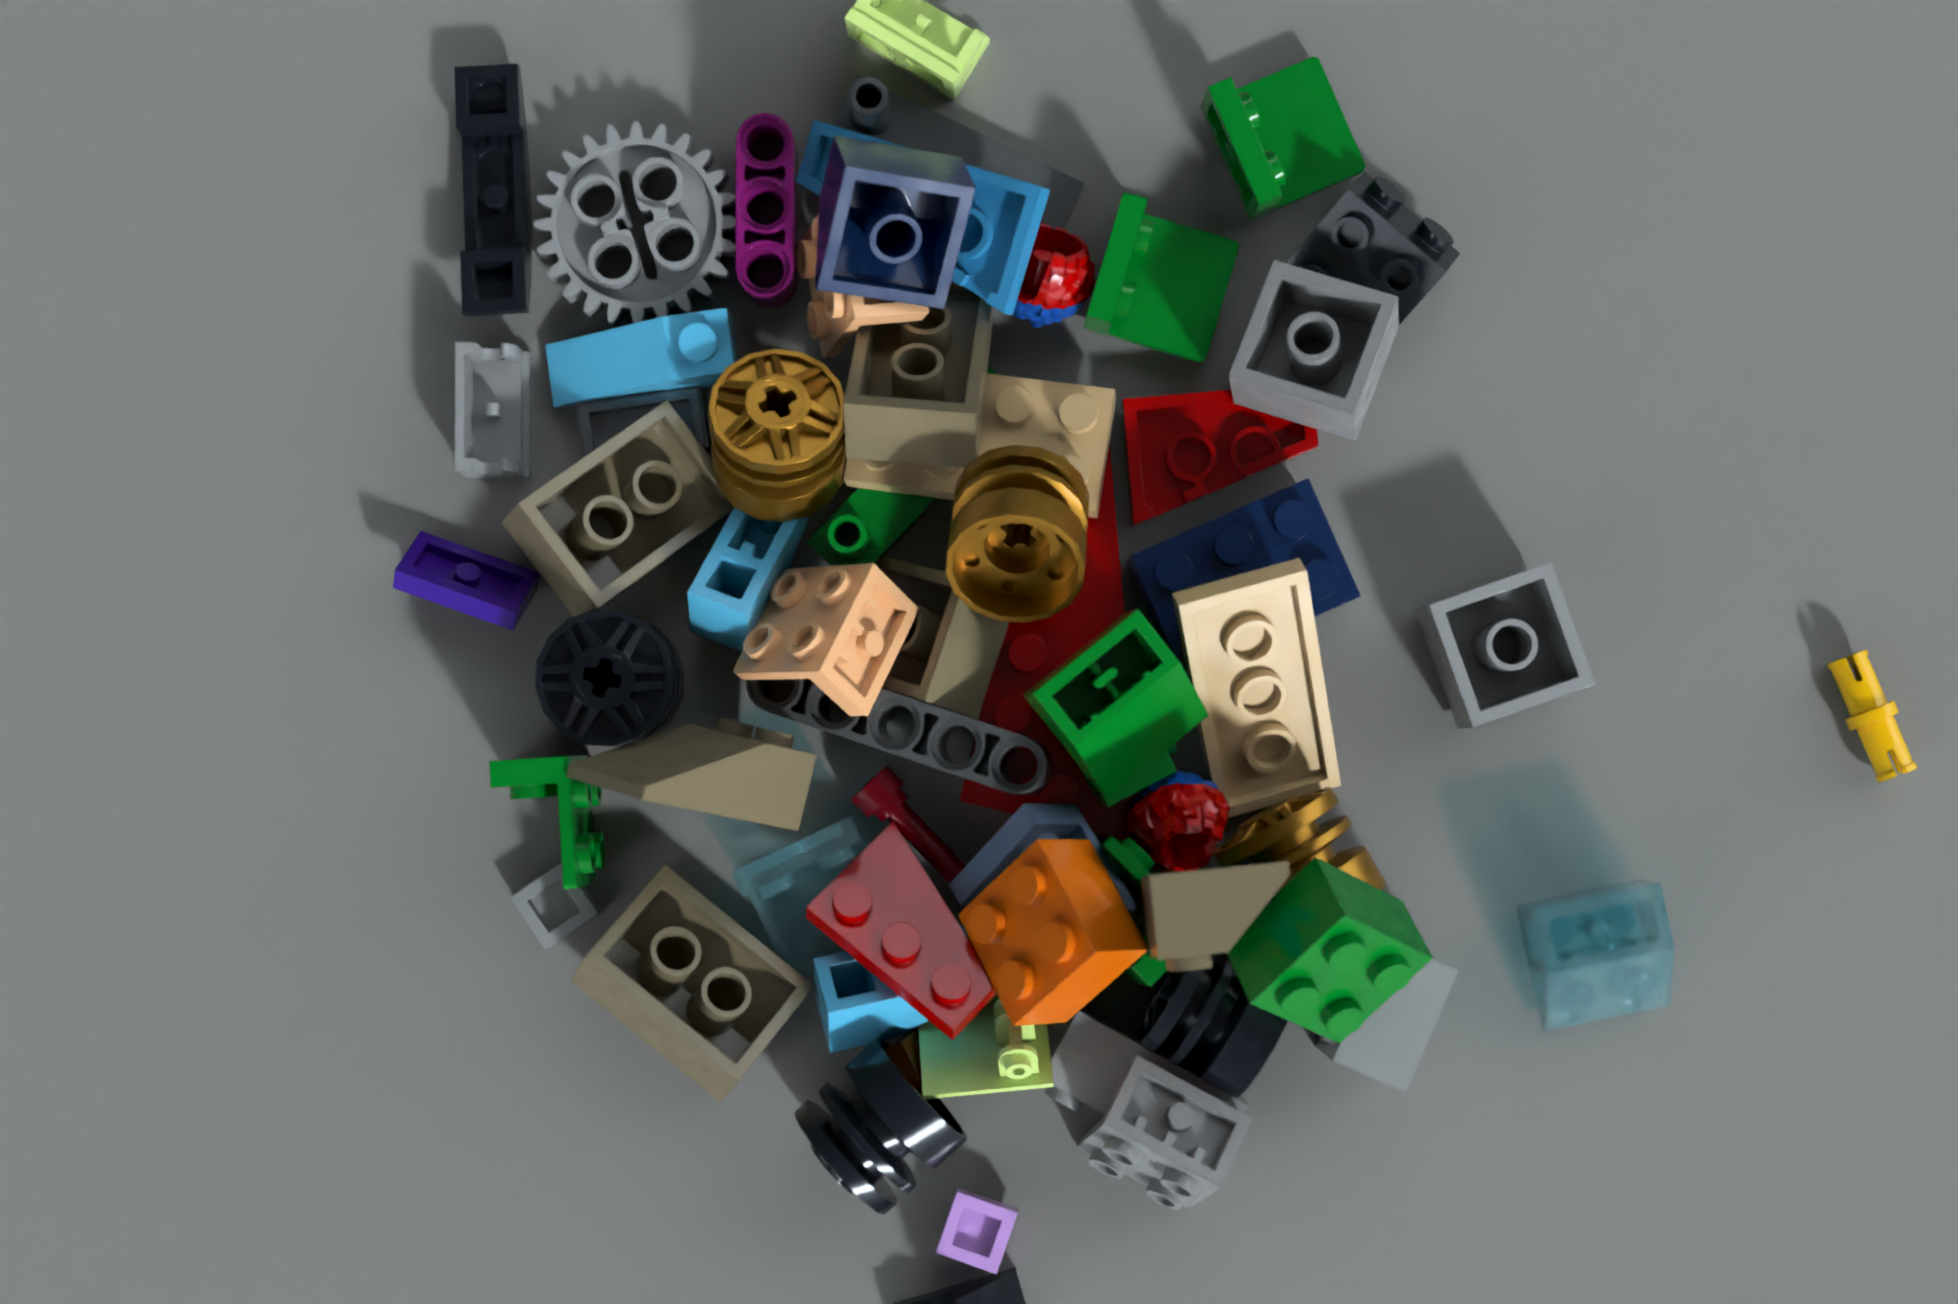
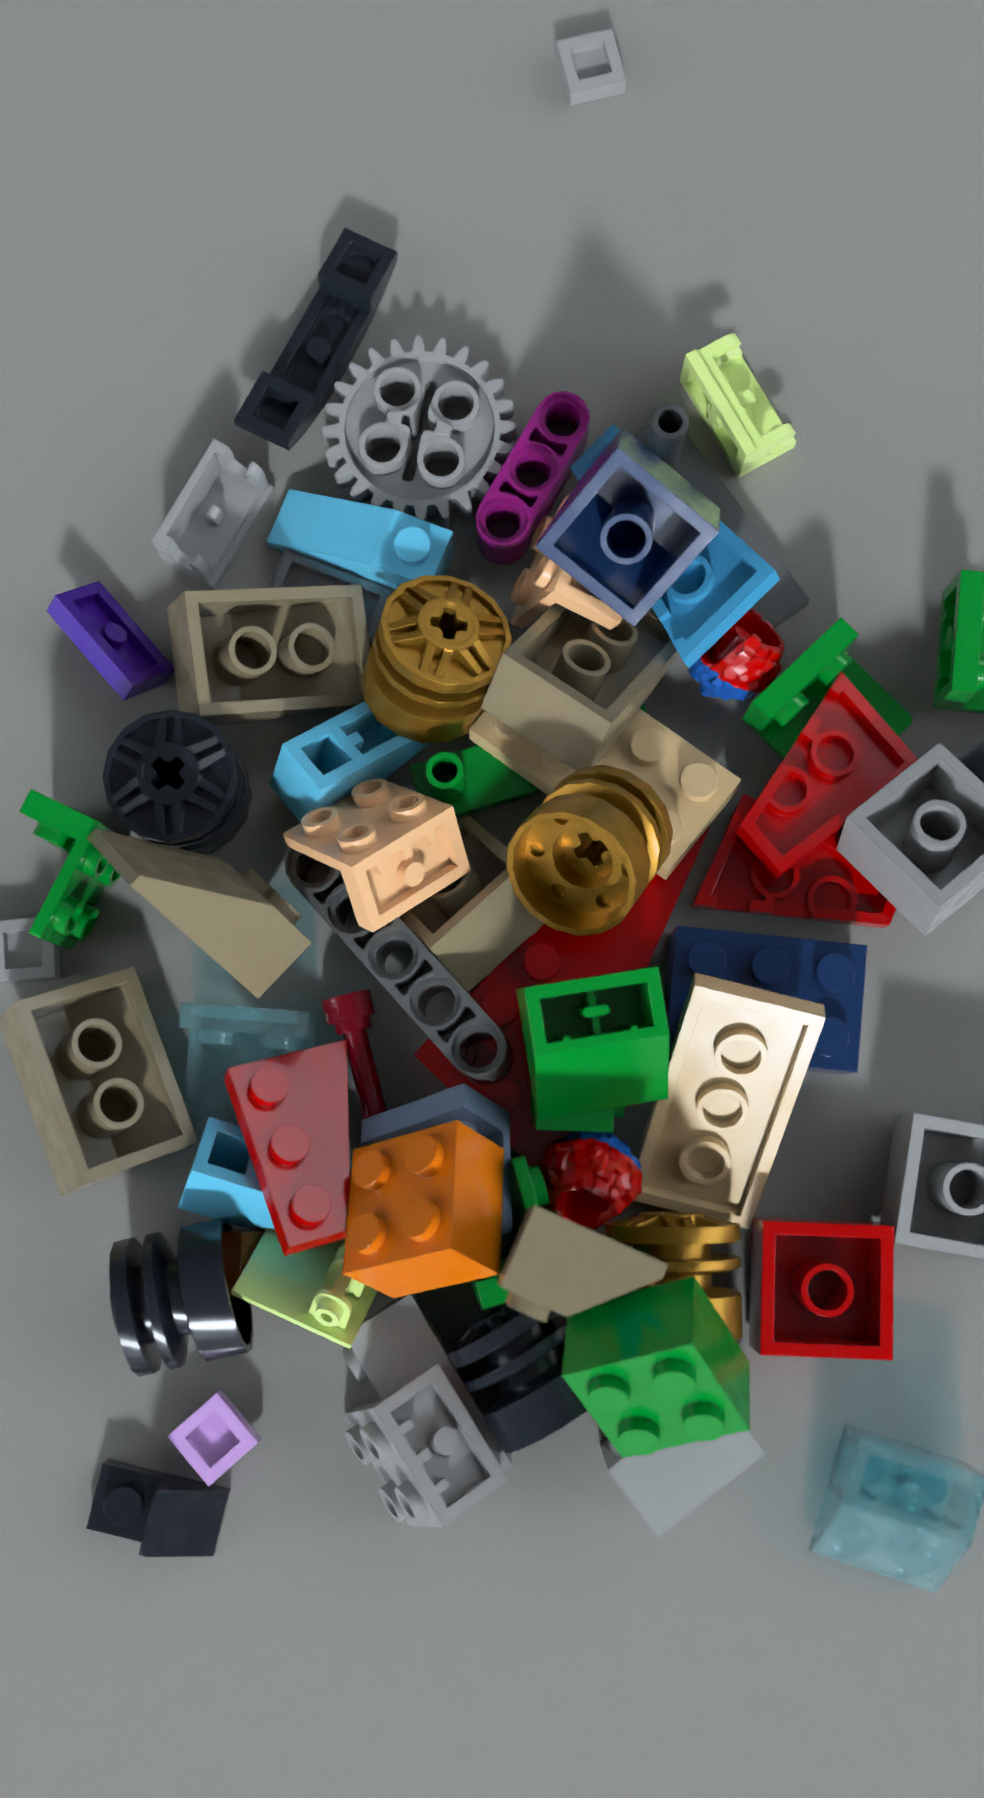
camera: 35 degrees right, 5 degrees down
(1189, 345) = (826, 775): none -> red wing
(1431, 801) = (821, 1288): none -> red brick

